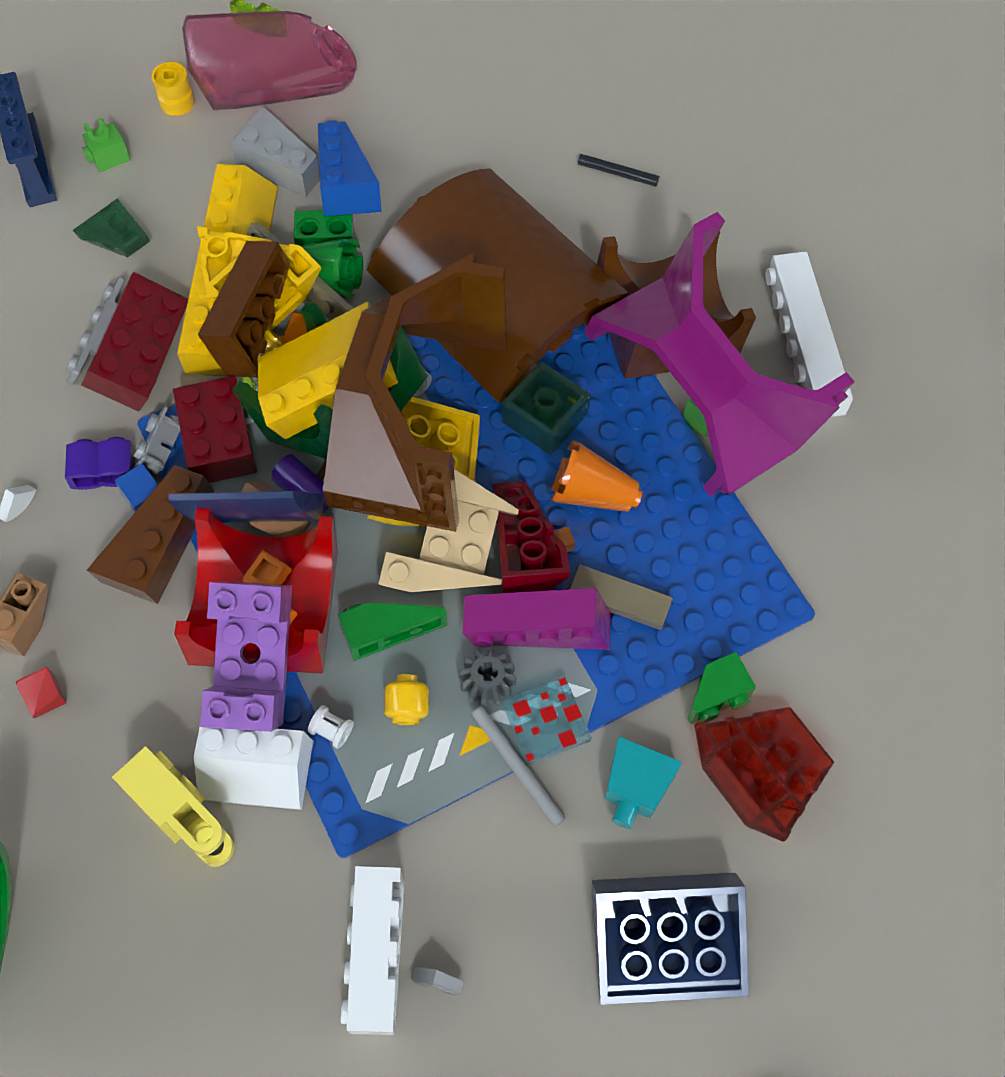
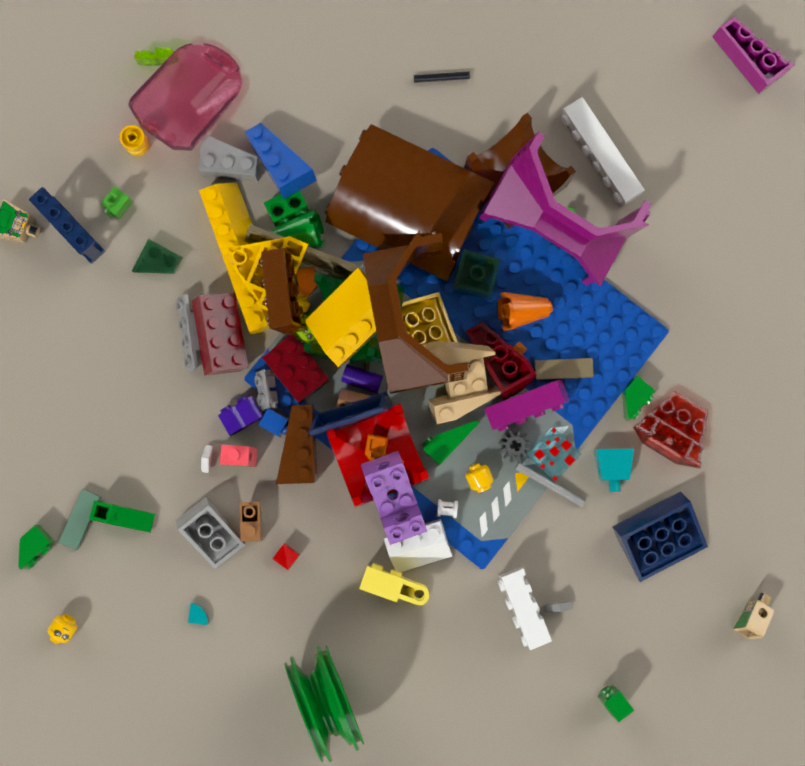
camera: 25 degrees left, 20 degrees up
(51, 507) = (238, 455): none -> coral torso

